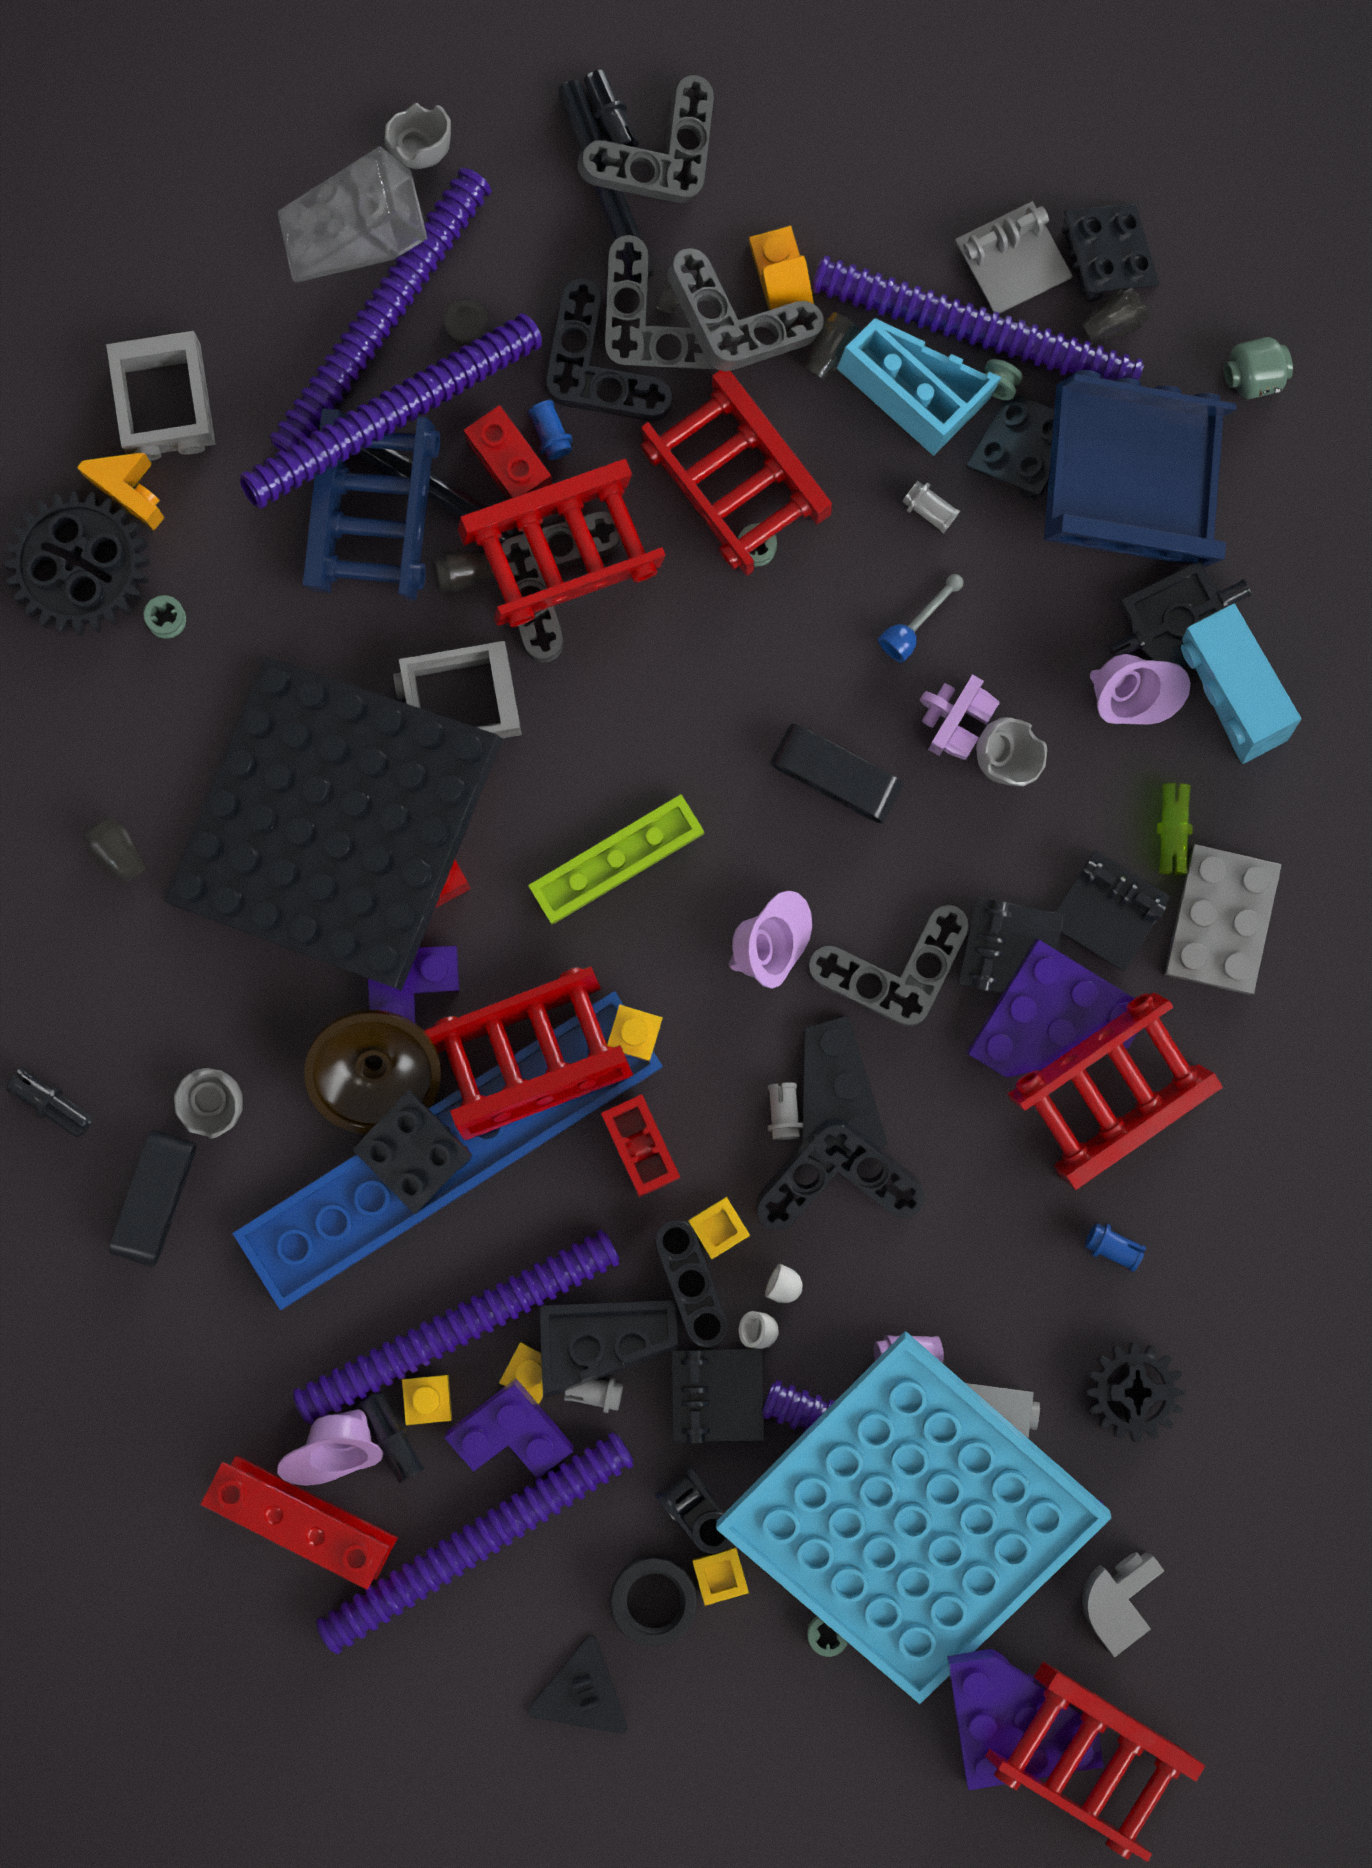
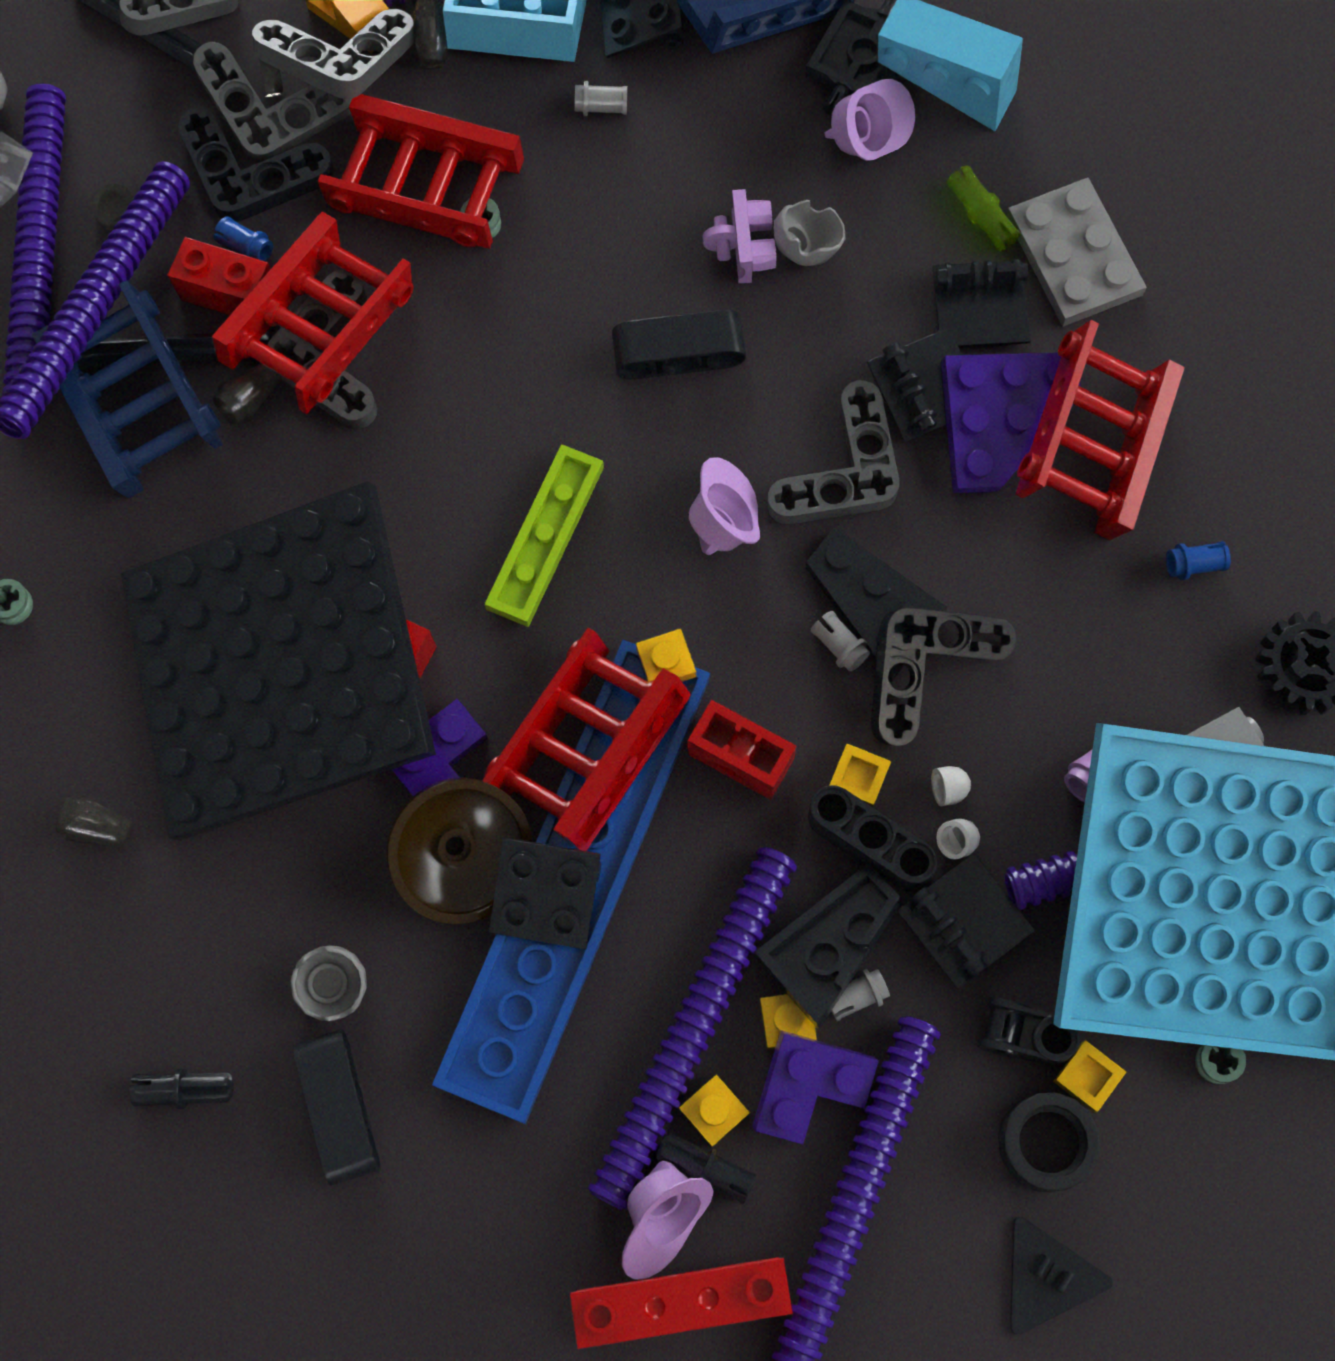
camera: 30 degrees left, 10 degrees down
(490, 653) = (298, 458): light grey window -> none
(900, 640) = (653, 212): hinge -> none

